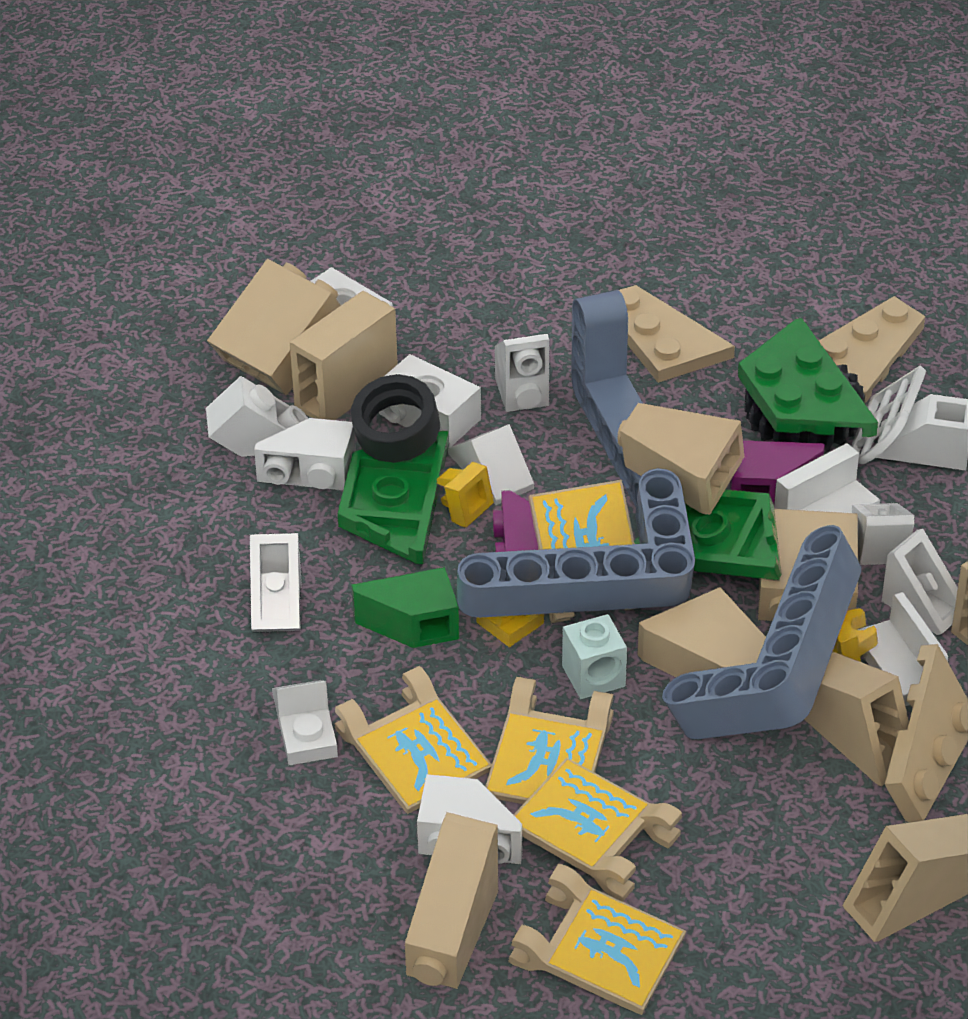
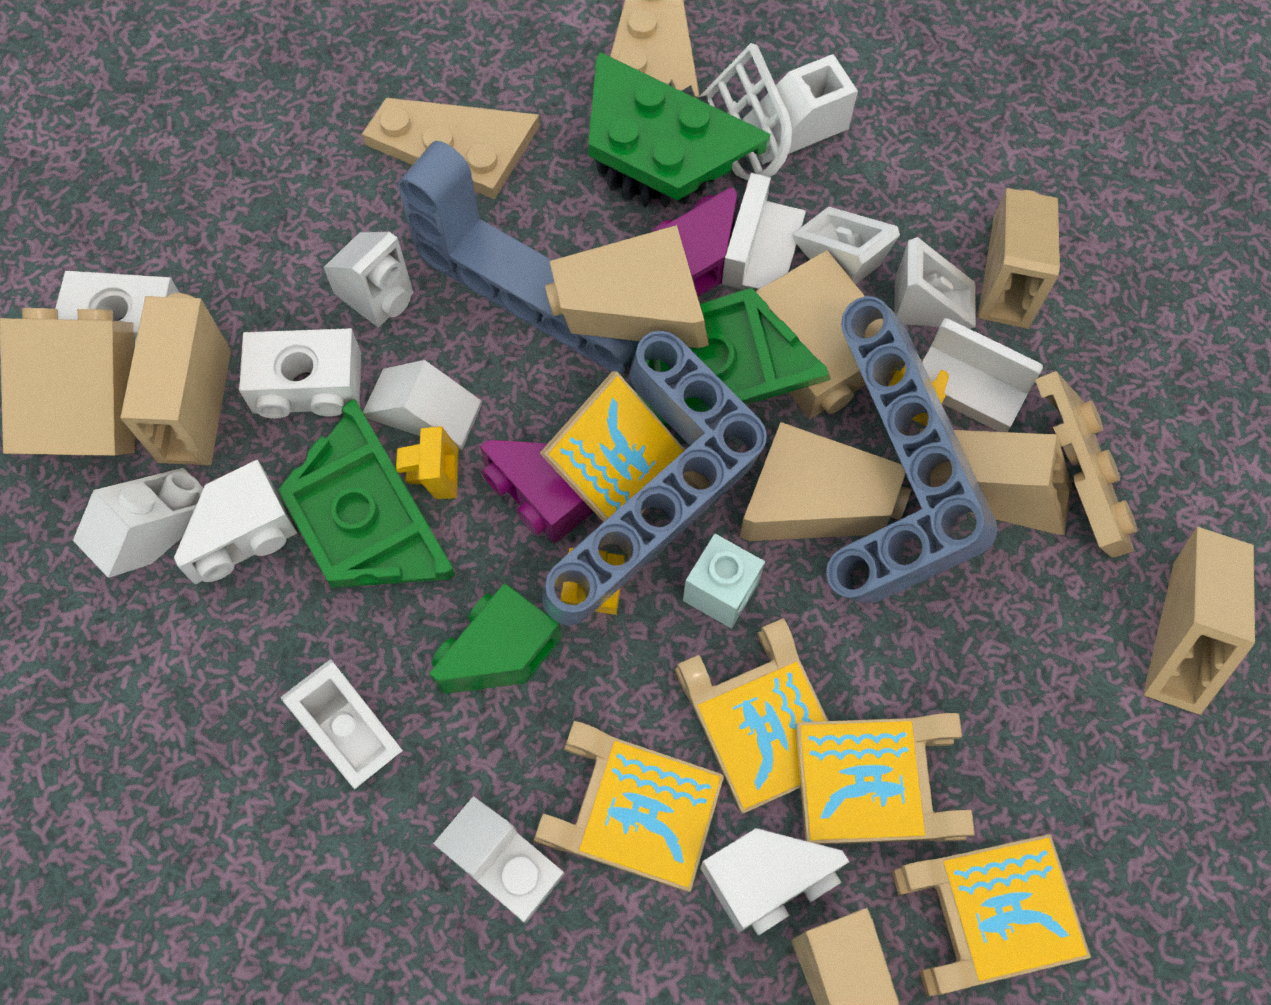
camera: 40 degrees left, 25 degrees up
(388, 392) = (277, 395): black tyre -> none

